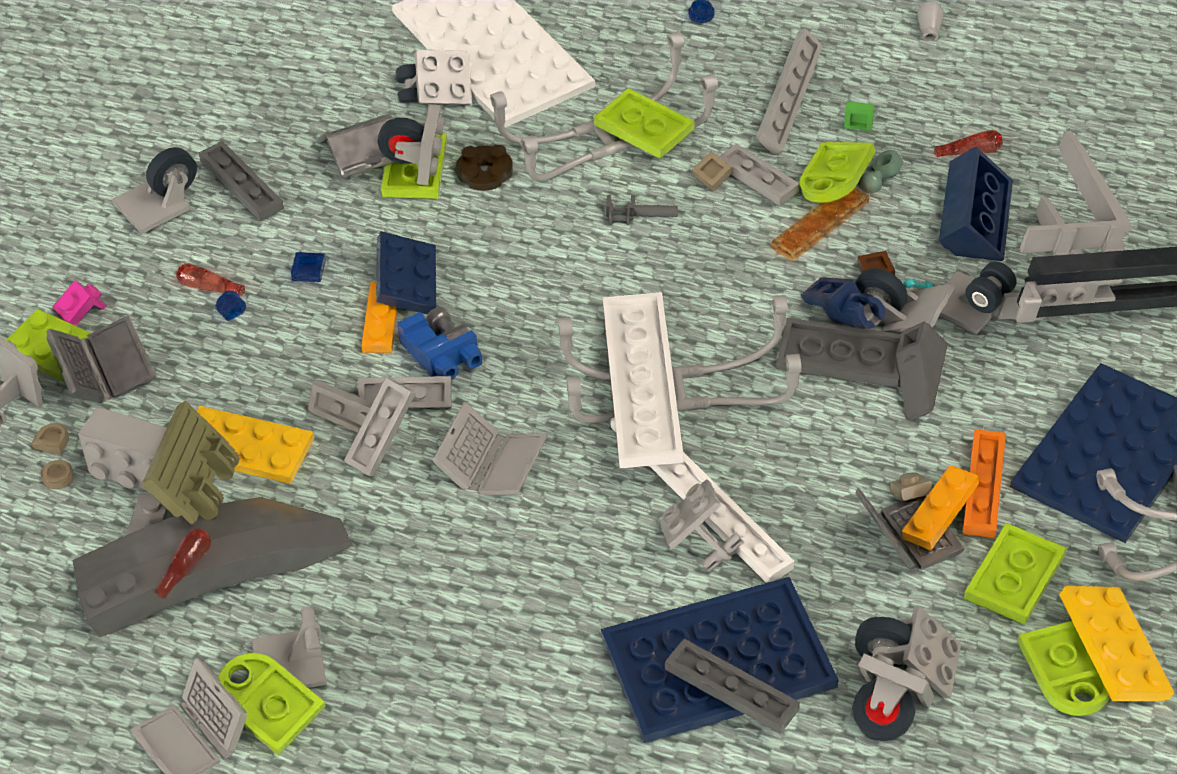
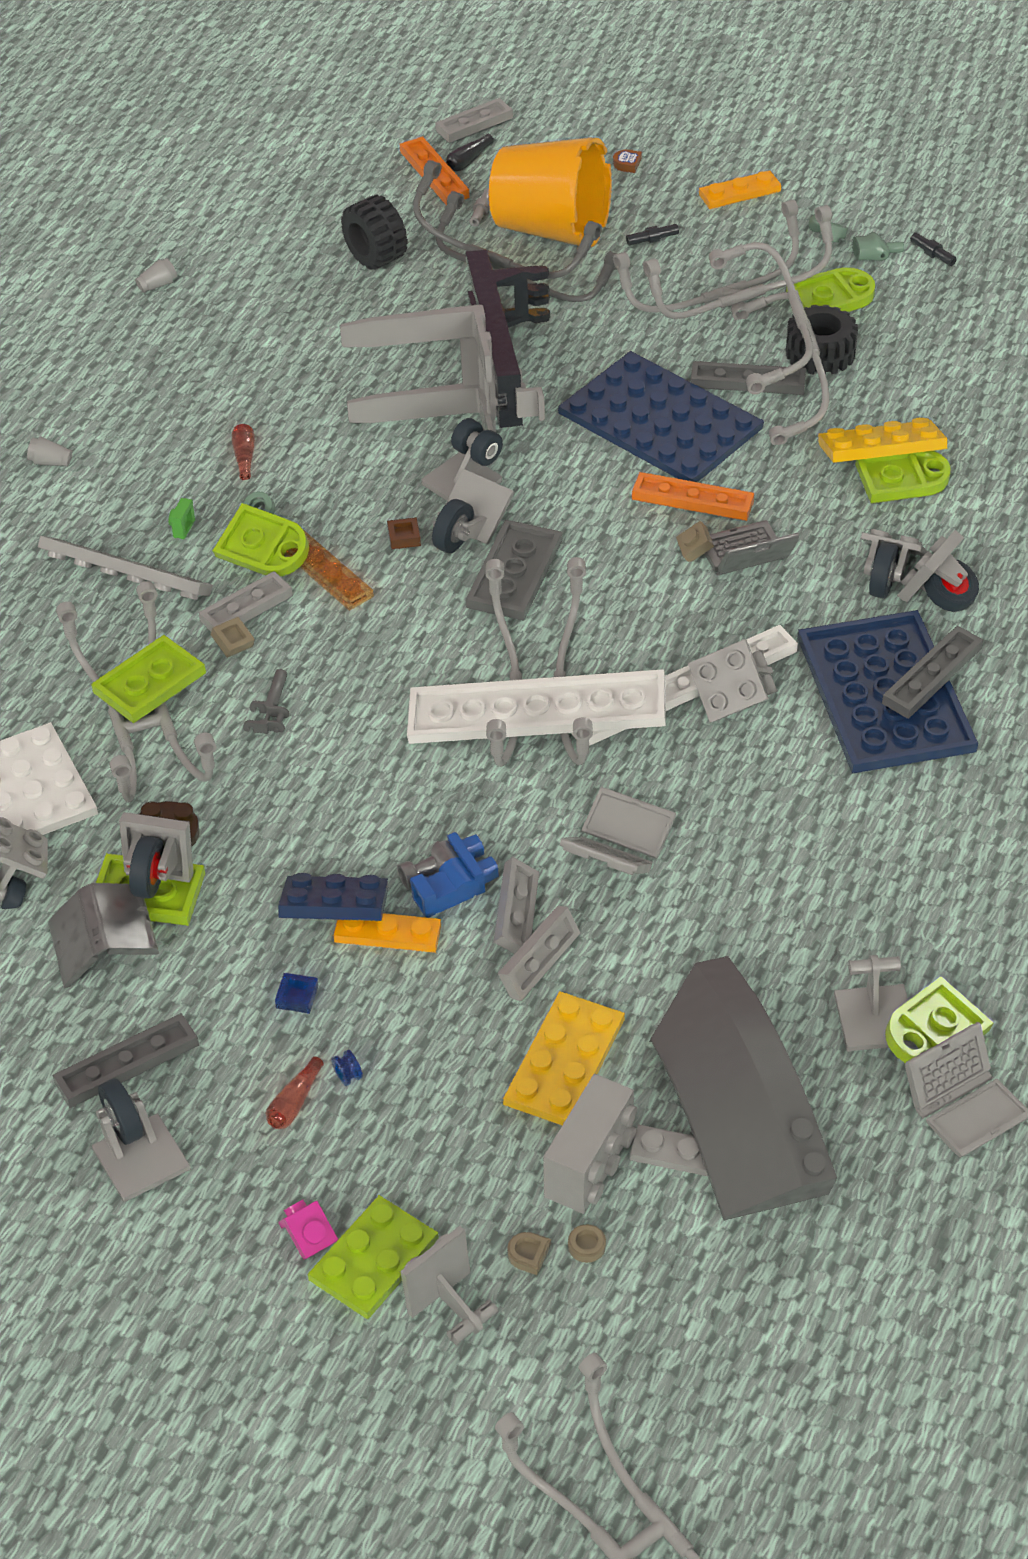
camera: 85 degrees left, 0 degrees up
(102, 363) = (422, 1182): flat silver piece -> none
(187, 466) = (616, 1064): olive hinge -> none
(188, 554) = (780, 1064): clear red piece -> none
(379, 427) = (583, 915): light grey plate -> none
(845, 302) = (458, 552): dark blue plate -> none
(912, 283) = (433, 505): teal hinge -> none
(920, 366) = (557, 515): dark grey slope -> none
(940, 507) = (724, 519): light orange plate -> none
(976, 207) = (338, 455): dark blue slope -> none
(1015, 573) = (799, 491): lime plate -> none

